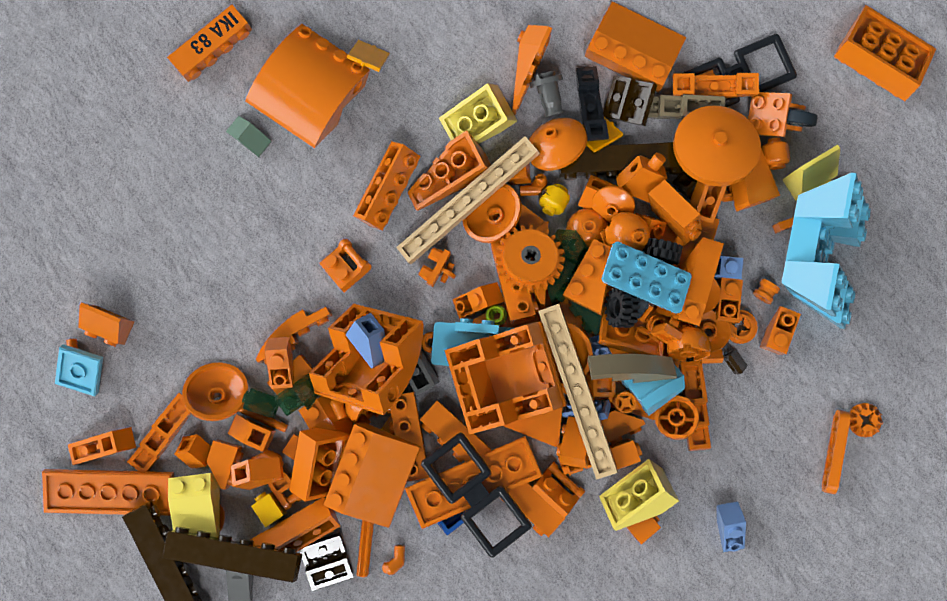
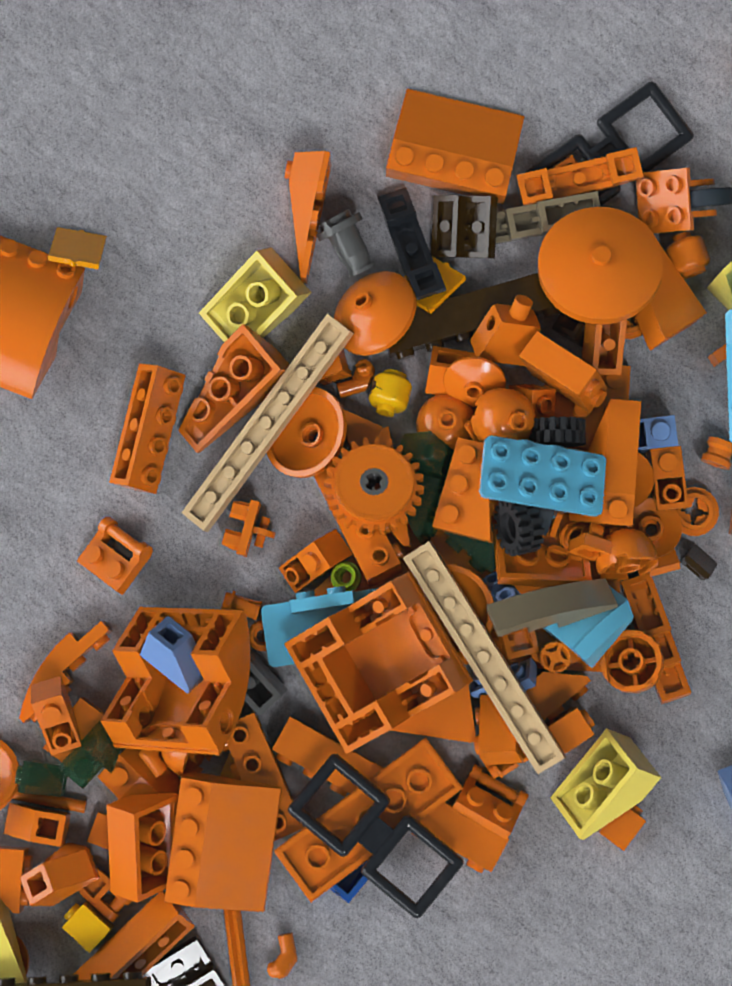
camera: 15 degrees left, 0 degrees up
(419, 315) = (236, 602): none -> orange pin

